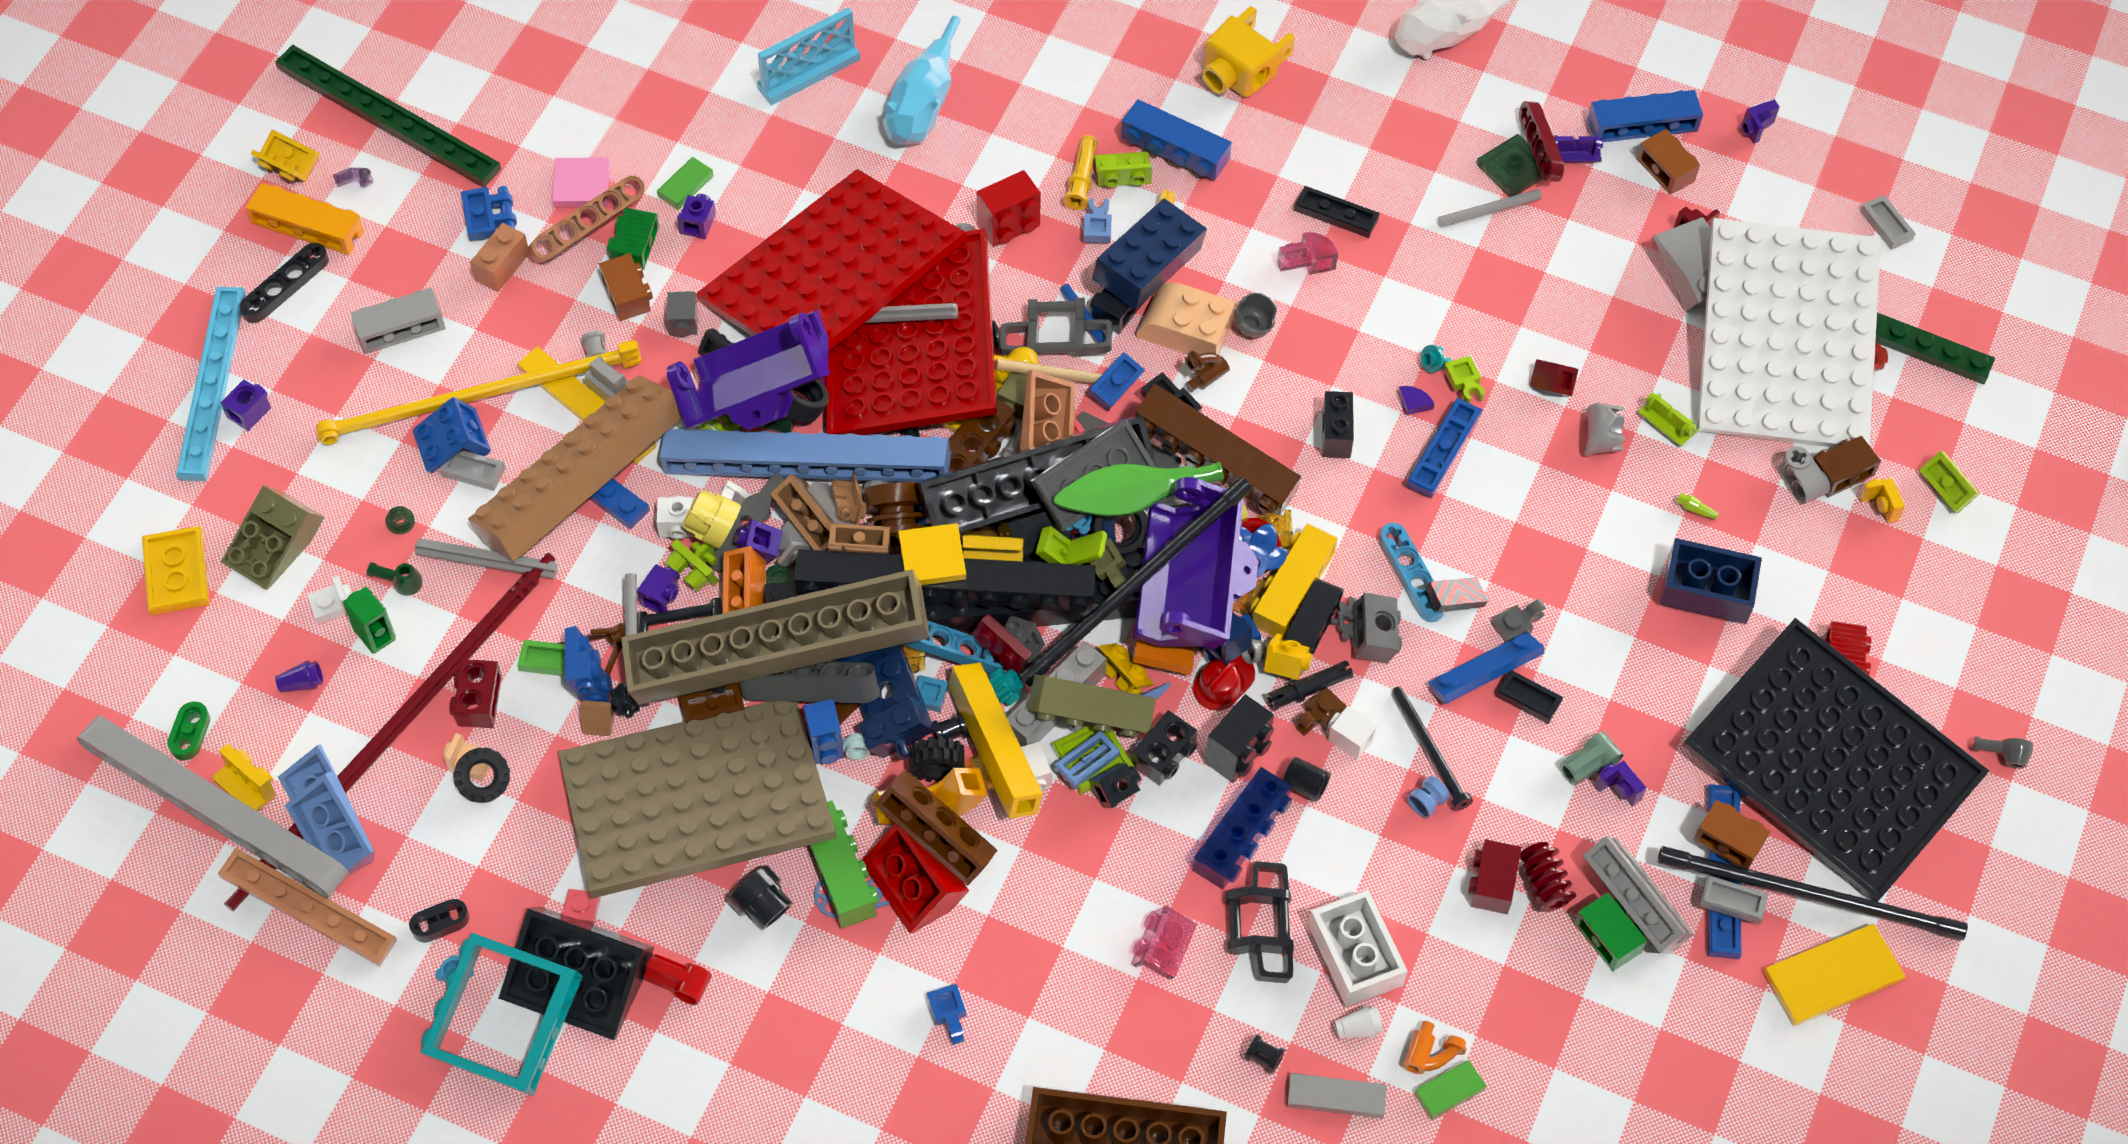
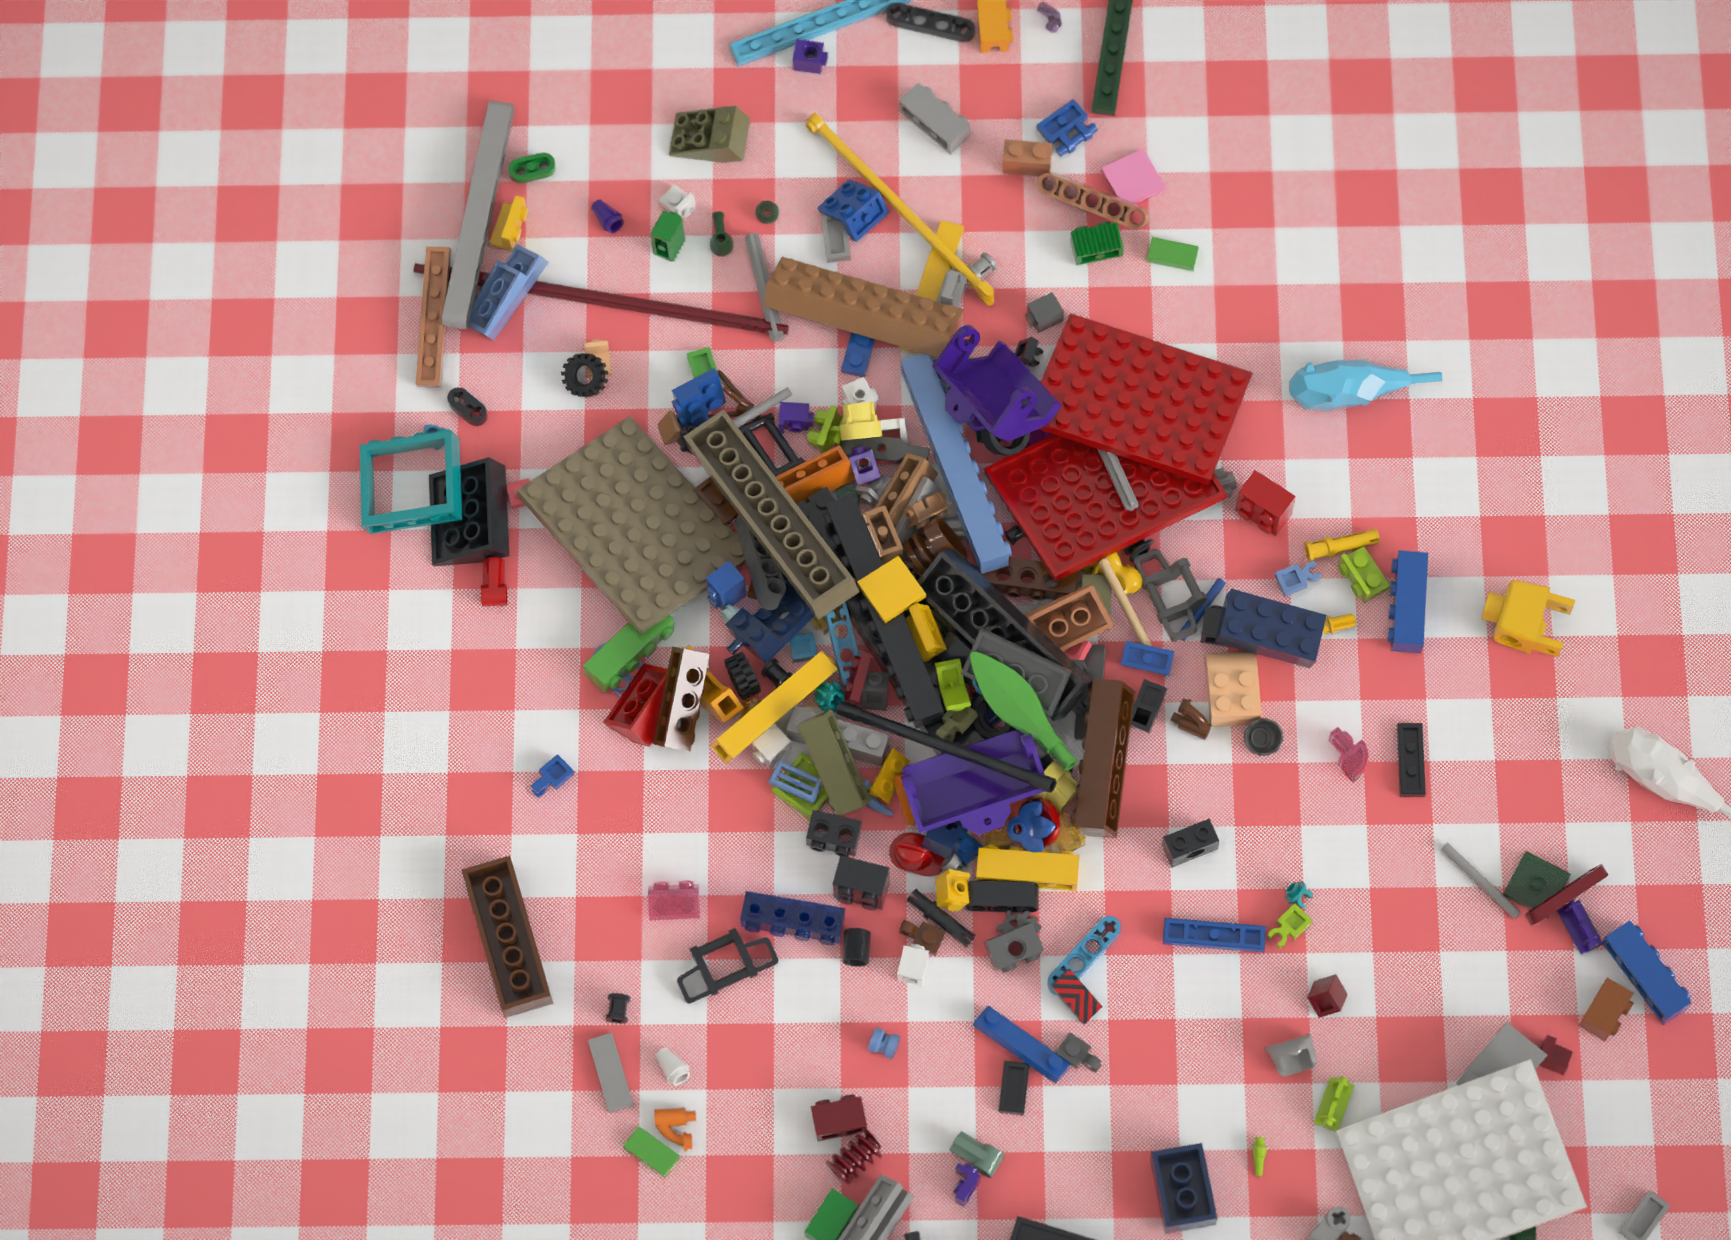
camera: 70 degrees right, 10 degrees up
(175, 570) = (654, 87): yellow tile -> none
(483, 693) = (653, 344): dark red brick -> none
(625, 286) = (1048, 260): dark orange brick -> none
(700, 213) = (1143, 284): dark purple brick -> none
(761, 898) = (576, 608): black piece -> none
(810, 67) = (1334, 284): medium azure fence -> none
(1106, 785) = (793, 810): black brick -> none
(1357, 948) = (728, 1038): white brick -> none
(1415, 400) = (1250, 895): dark purple tile -> none
(1460, 799) = (928, 1032): black bar -> none
(1758, 118) = (1700, 1070): dark purple bracket -> none

